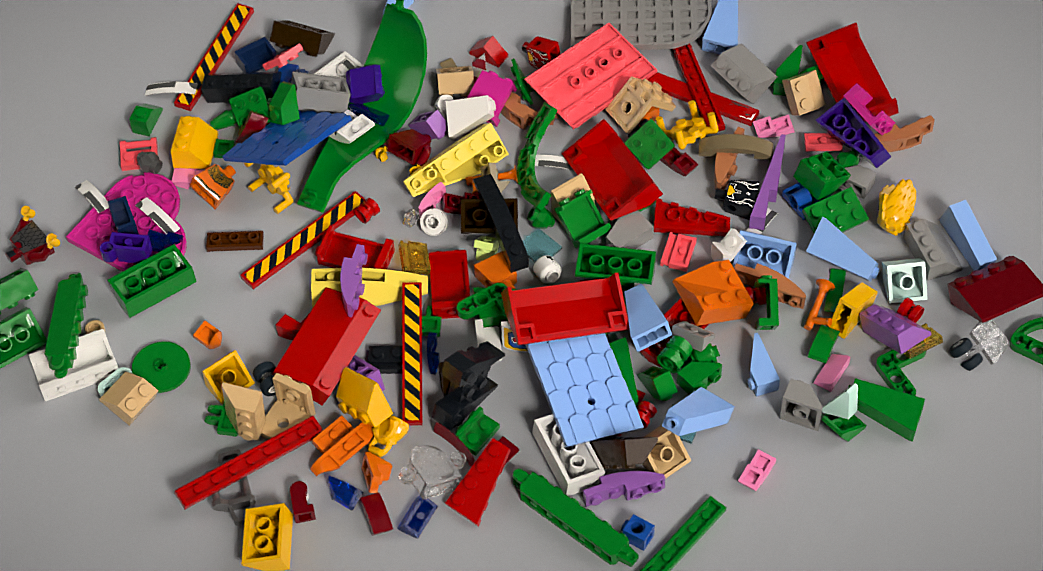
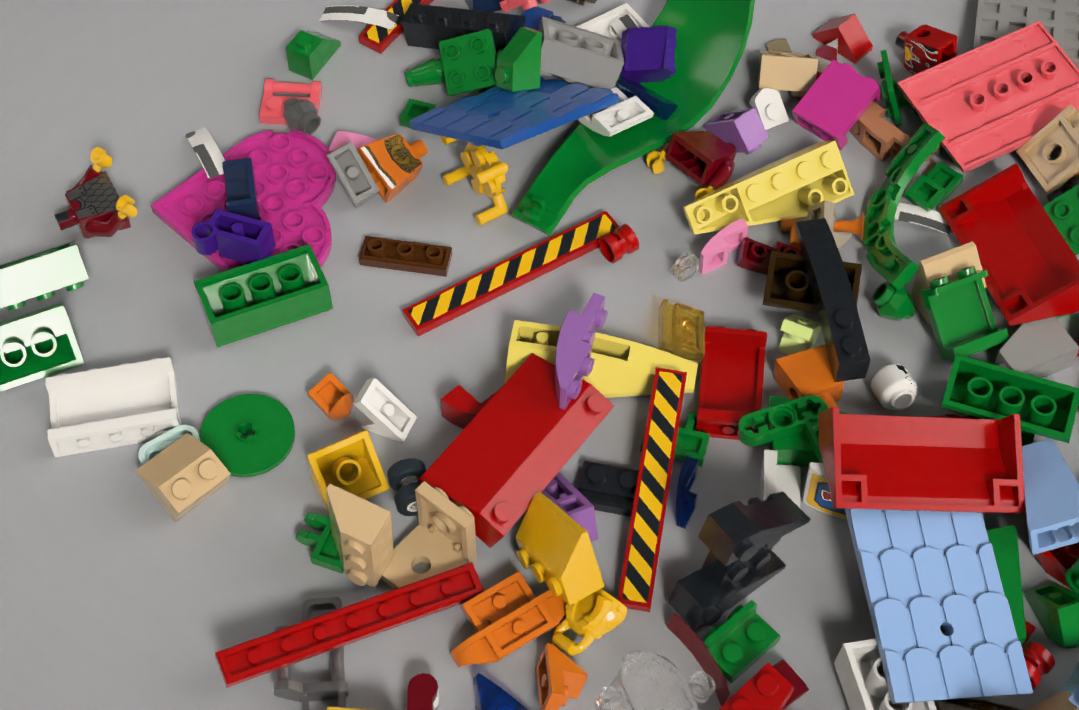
camera: 10 degrees right, 0 degrees up
(66, 324) = (112, 342): green hinge -> none
(93, 326) = (160, 350): tan tile -> none
(157, 215) = (296, 198): white sticker -> none
(162, 241) = (290, 236): clear blue slope -> none
(191, 194) = (353, 174): none -> light grey slope
(193, 144) = (372, 99): yellow slope -> none
(242, 338) = (384, 411): none -> white slope
(253, 124) = (470, 82): dark red slope -> none
(337, 246) = (565, 291): red panel -> none
(434, 221) = (721, 279): white plate -> none
(444, 382) = (697, 548): dark brown tile -> none
(468, 114) = (801, 122): white slope -> none
(540, 244) = (888, 346): clear light blue piece -> none
(557, 141) = (934, 187): none -> green slope

